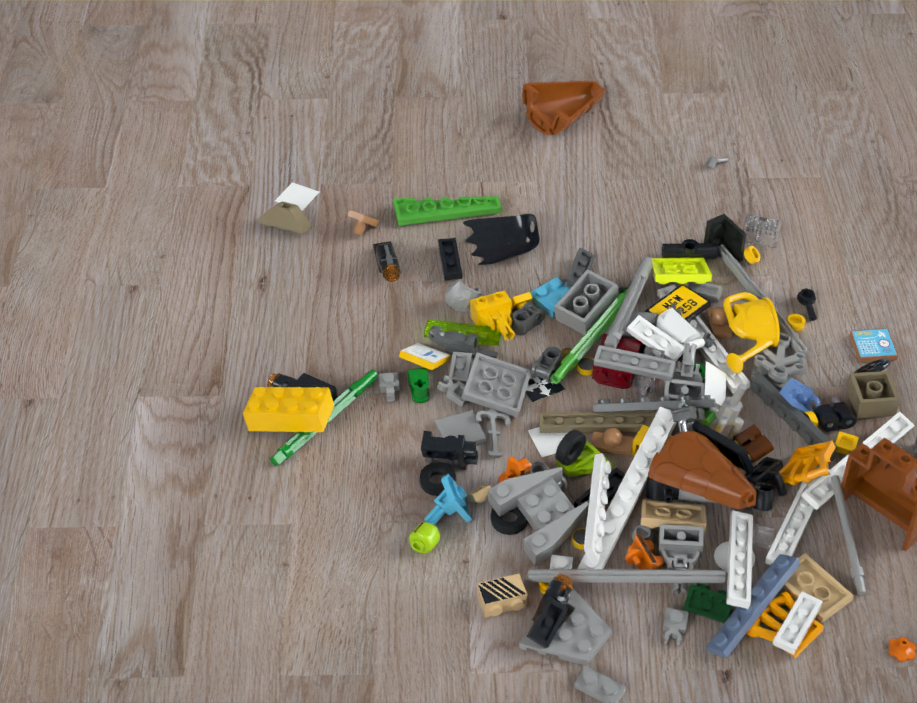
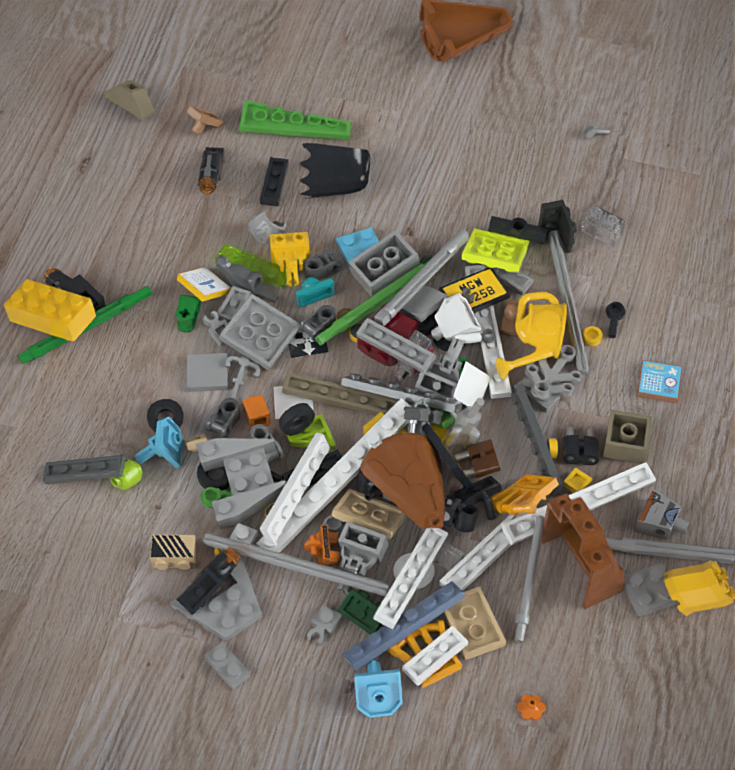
camera: 15 degrees right, 10 degrees up
(297, 195) = (155, 74): white sticker -> none
(382, 542) = (84, 469): none -> dark grey tile
(389, 383) = (160, 304): light grey plate -> none
(450, 449) = (188, 393): black hips -> none
(496, 463) = (222, 420): none -> dark grey piece
(515, 468) = (235, 429): orange hips -> none
(515, 537) = (213, 494): none -> bright green plate
(520, 300) = (322, 245): yellow plate -> none
(524, 448) = (256, 411): none -> orange brick
(530, 340) = (314, 291): none -> teal tile
(582, 262) = (400, 221): dark grey plate -> none
(612, 442) = (346, 421): medium nougat tile -> none
(655, 338) = (429, 323): white plate -> none
(752, 255) = (580, 249): yellow tile -> none
(759, 669) = (378, 691): none -> medium azure piece
(799, 395) = (550, 421): medium blue hinge -> none
(874, 366) = (642, 407): black piece -> none

